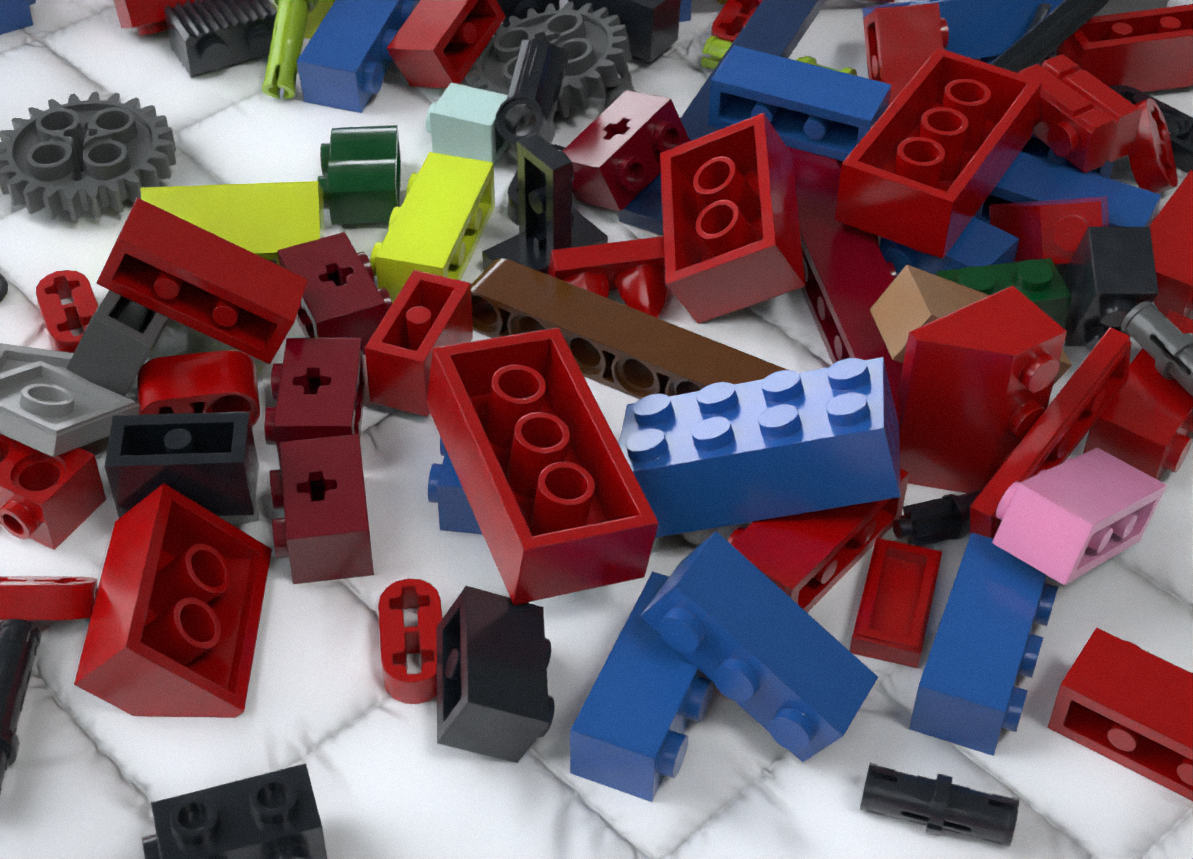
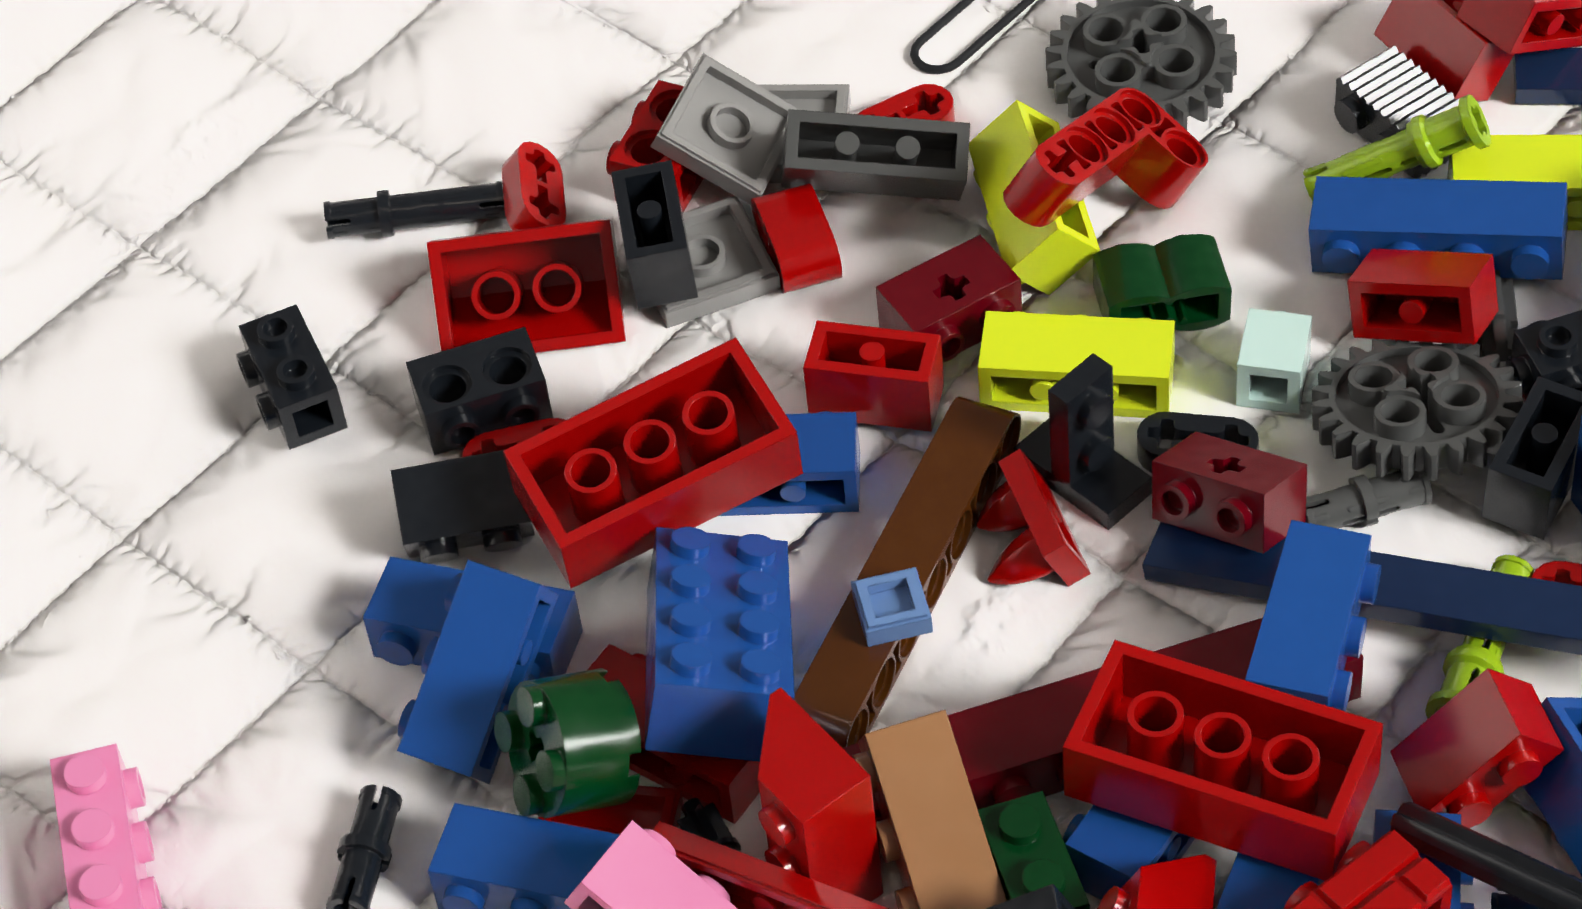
camera: 90 degrees right, 5 degrees up
(203, 281) = (879, 178): red brick -> none
(242, 152) = (1117, 137): none -> red beam
(316, 391) = (779, 318): dark red brick -> none
(319, 662) = (479, 389): none -> black brick
(323, 509) = (649, 344): dark red brick -> none
(533, 90) = (1285, 397): black piece -> none
(718, 344) = (892, 606): none -> medium blue tile
(730, 219) = (1086, 588): red brick -> none
(883, 557) = (569, 743): none -> dark green brick

